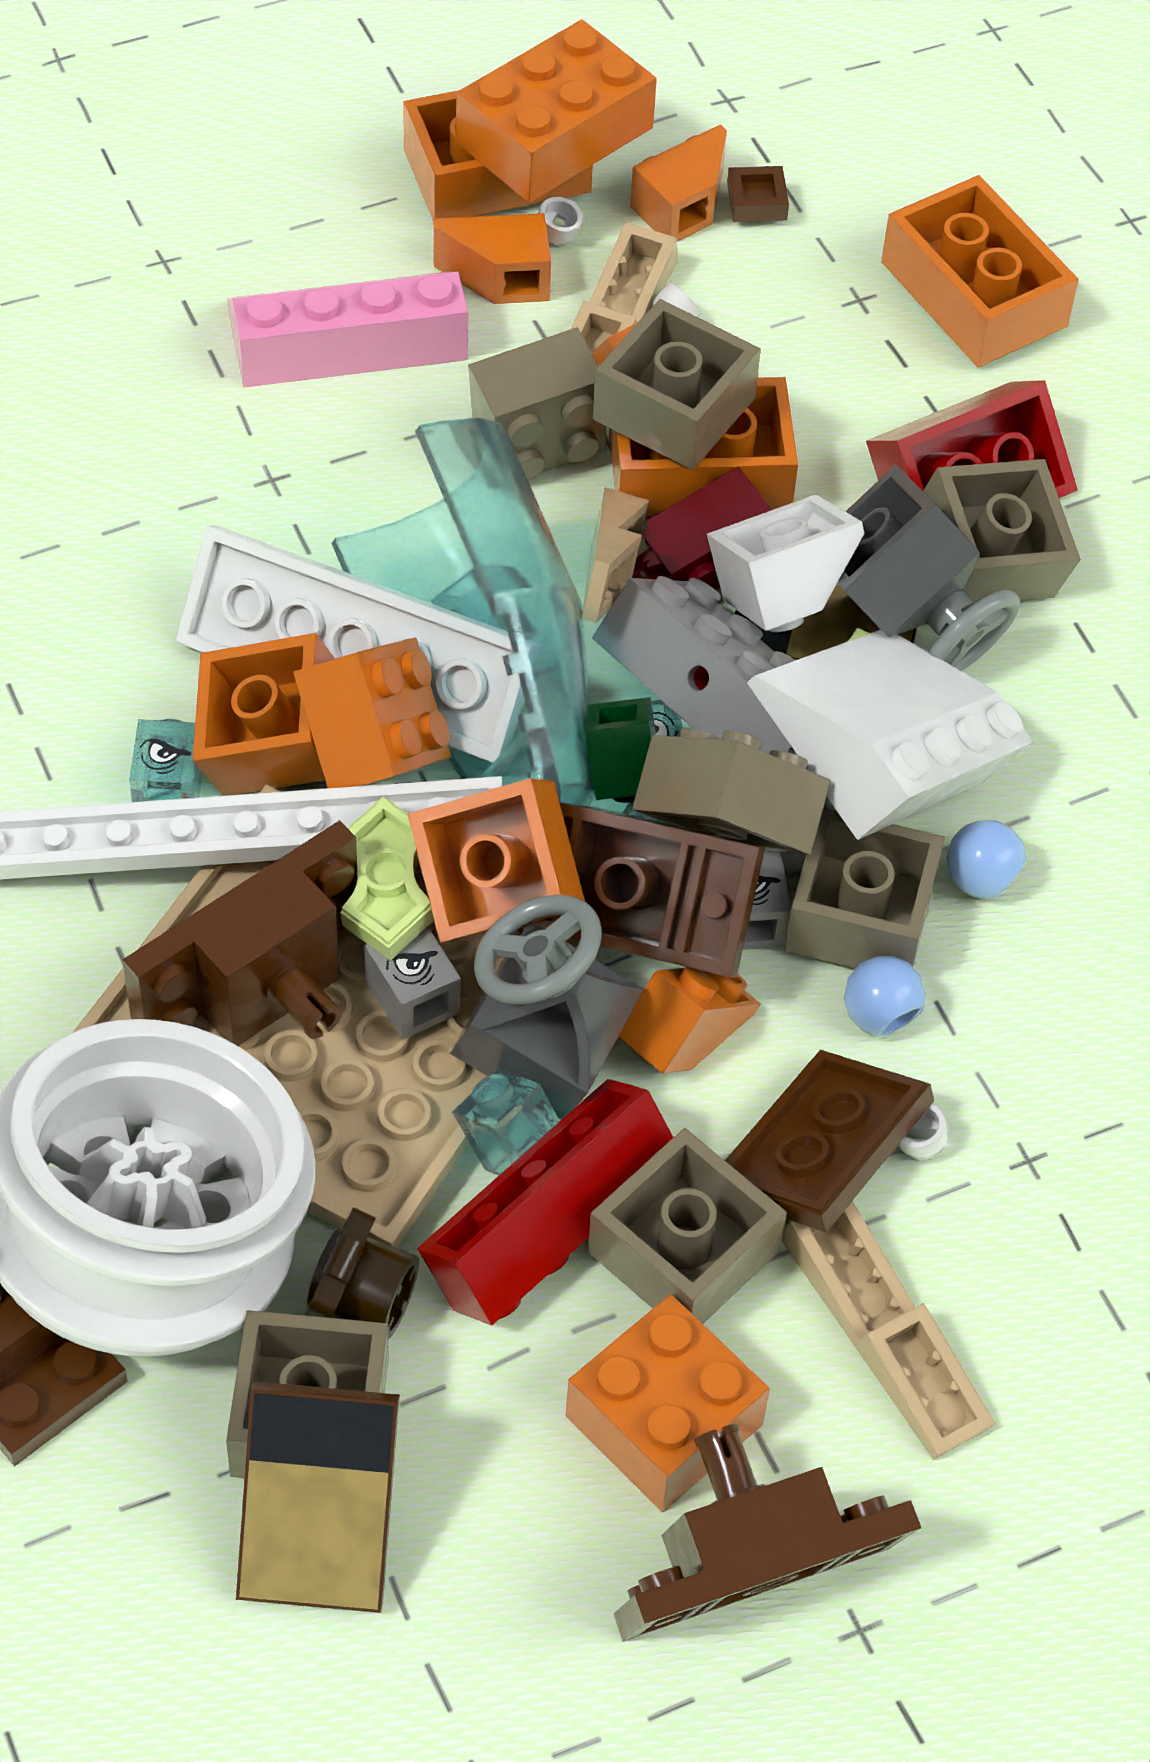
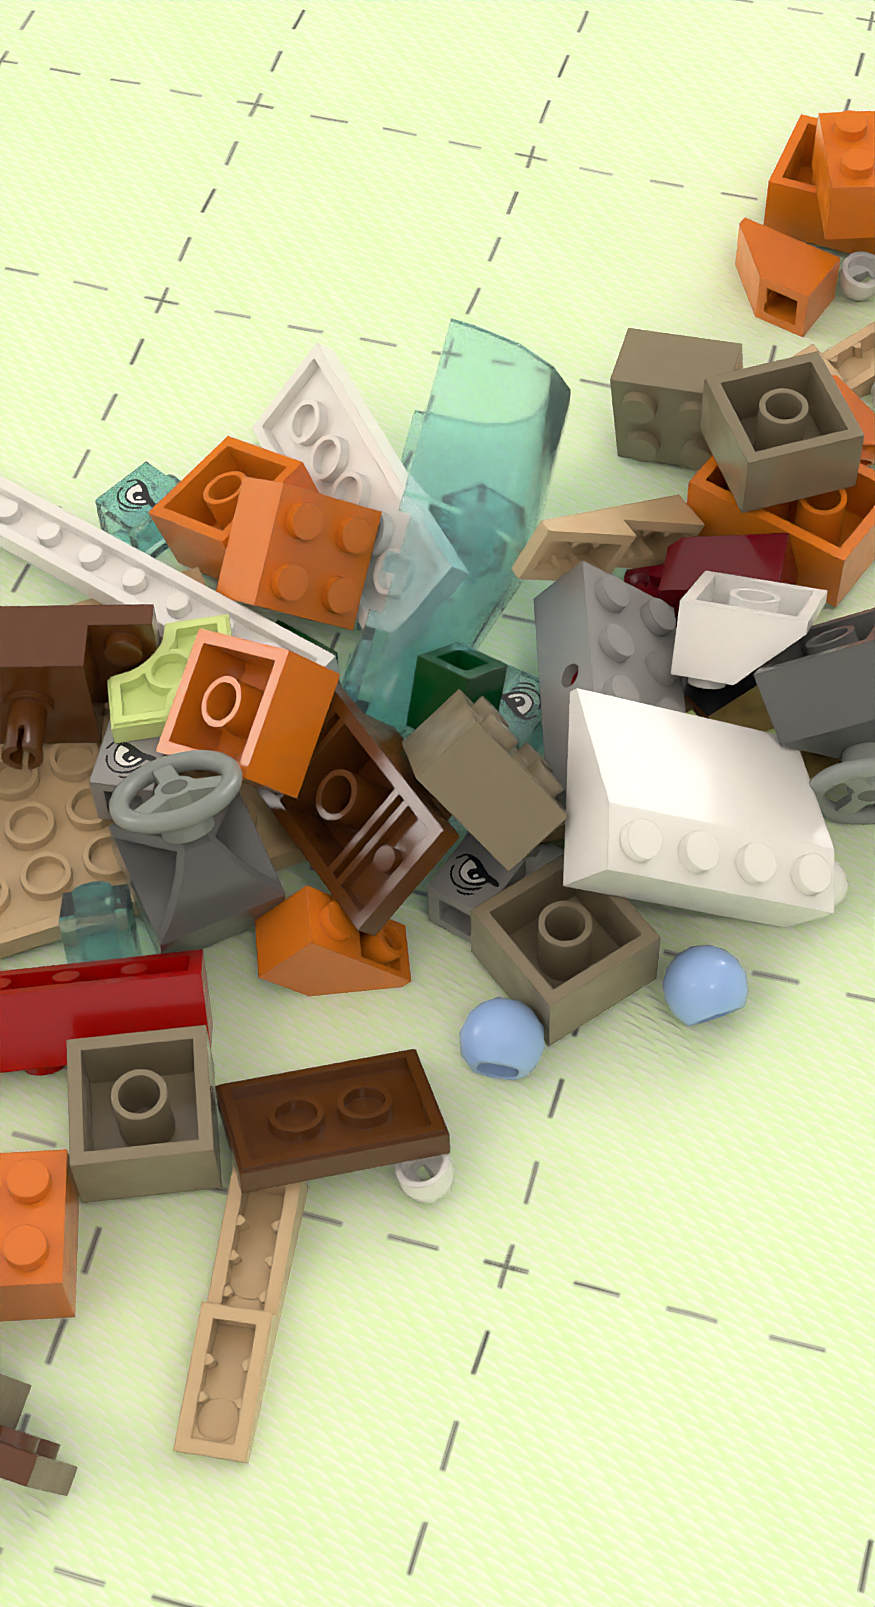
camera: 45 degrees right, 0 degrees up
(349, 328) = (608, 269): bright pink slope -> none

